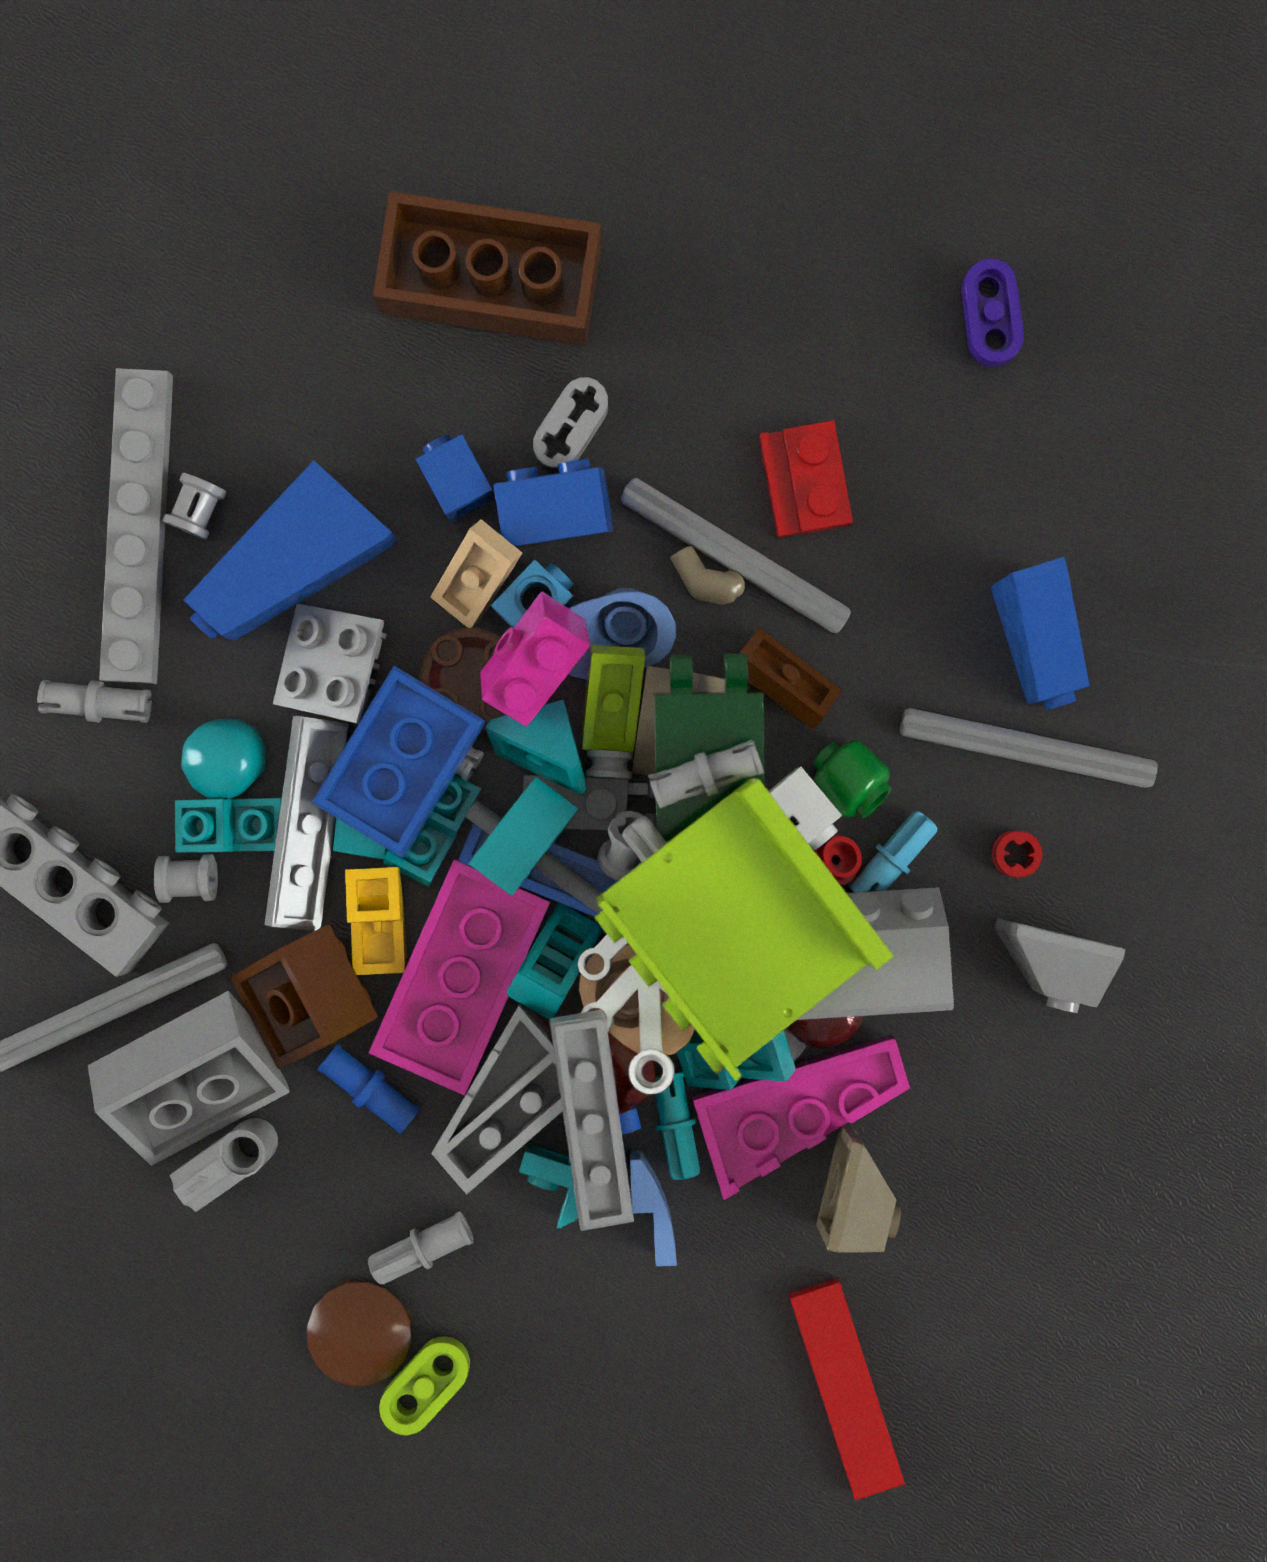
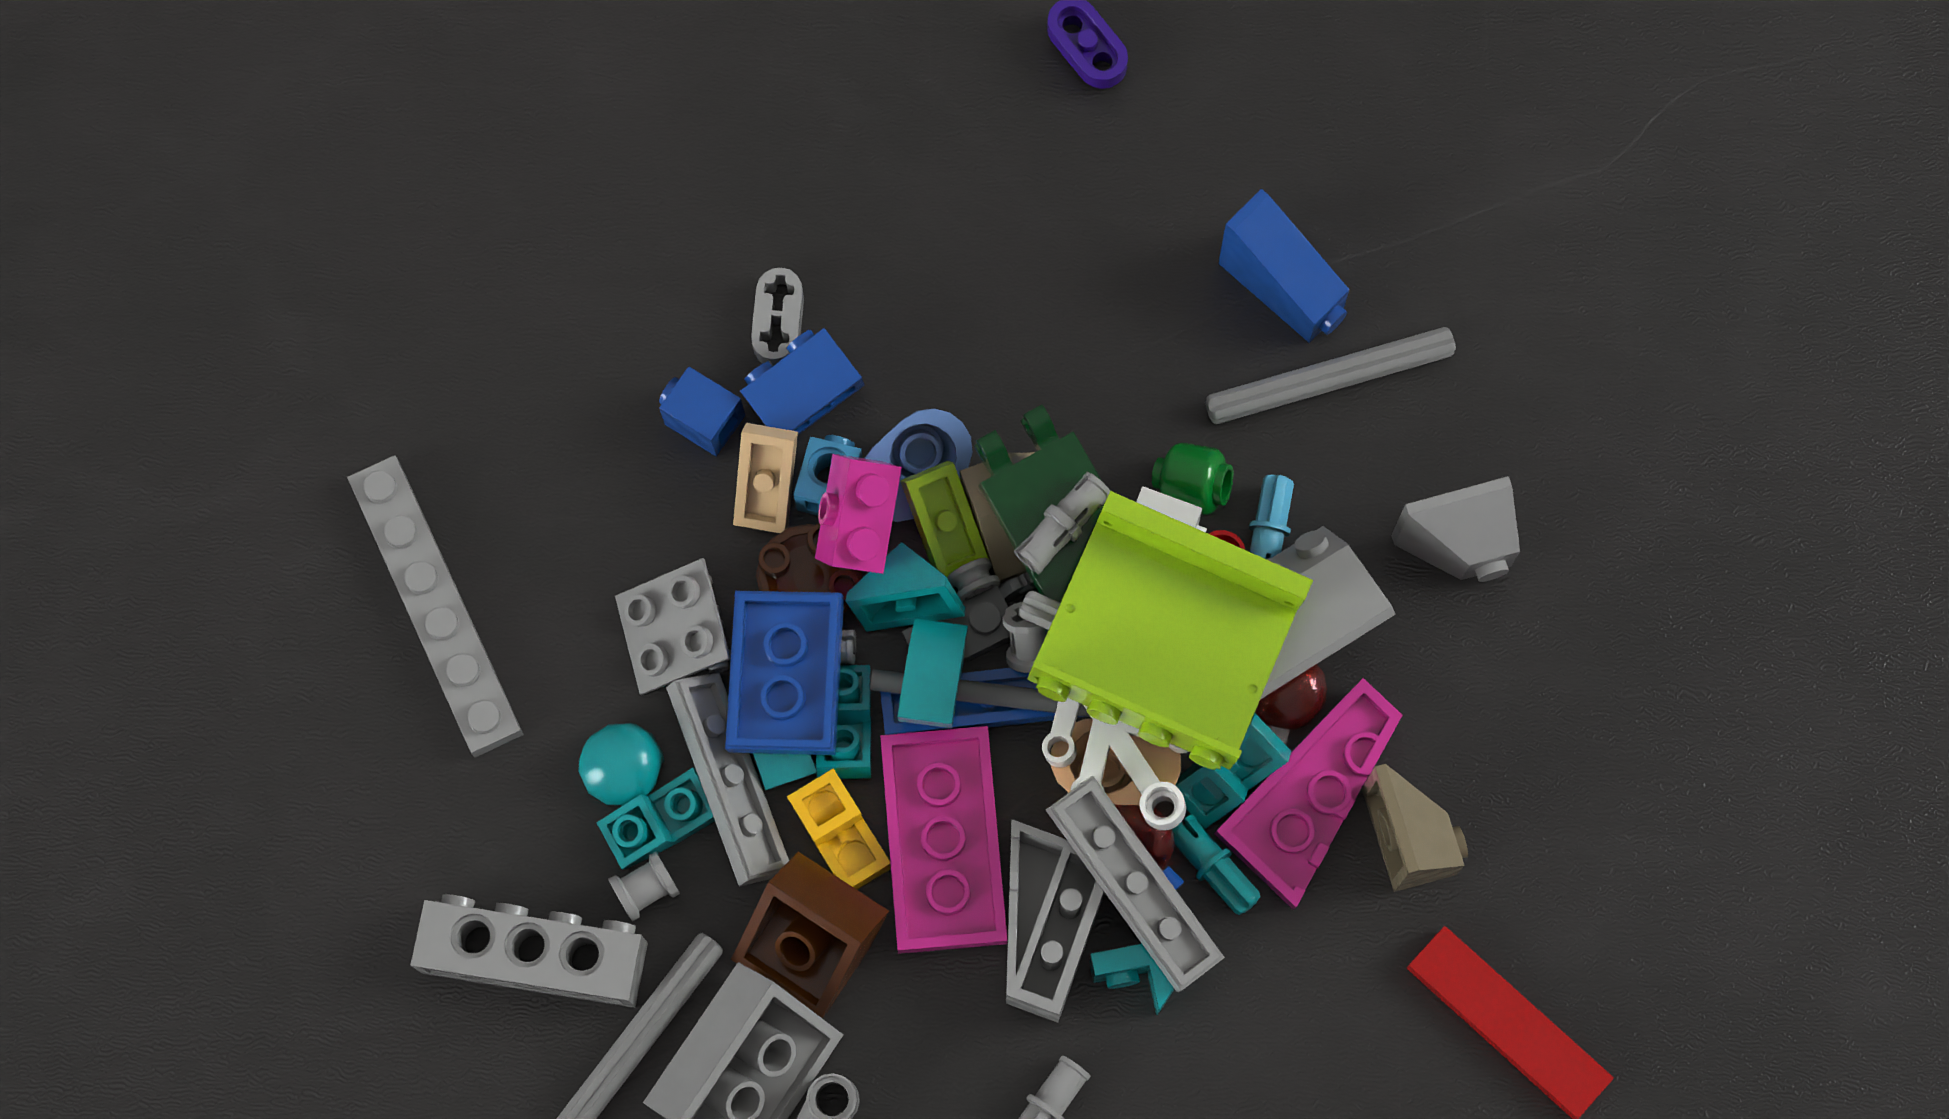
camera: 25 degrees left, 15 degrees down
(94, 701) = (476, 774): light grey pin -> none
(184, 504) = (485, 538): light grey bush -> none
(289, 554) = (589, 549): blue slope -> none
(368, 1089) = (915, 987): blue pin -> none
(487, 268) = (637, 223): reddish brown brick -> none
(540, 987) = (1020, 777): teal slope -> none
(649, 1198) = (1231, 940): medium blue slope -> none
(704, 583) = (970, 386): dark tan arm -> none
(735, 555) = (983, 350): light grey axle -> none
(788, 679) = (1096, 427): reddish brown plate -> none
(805, 479) = (1007, 257): red plate -> none
(1014, 869) = (1384, 481): red bush -> none

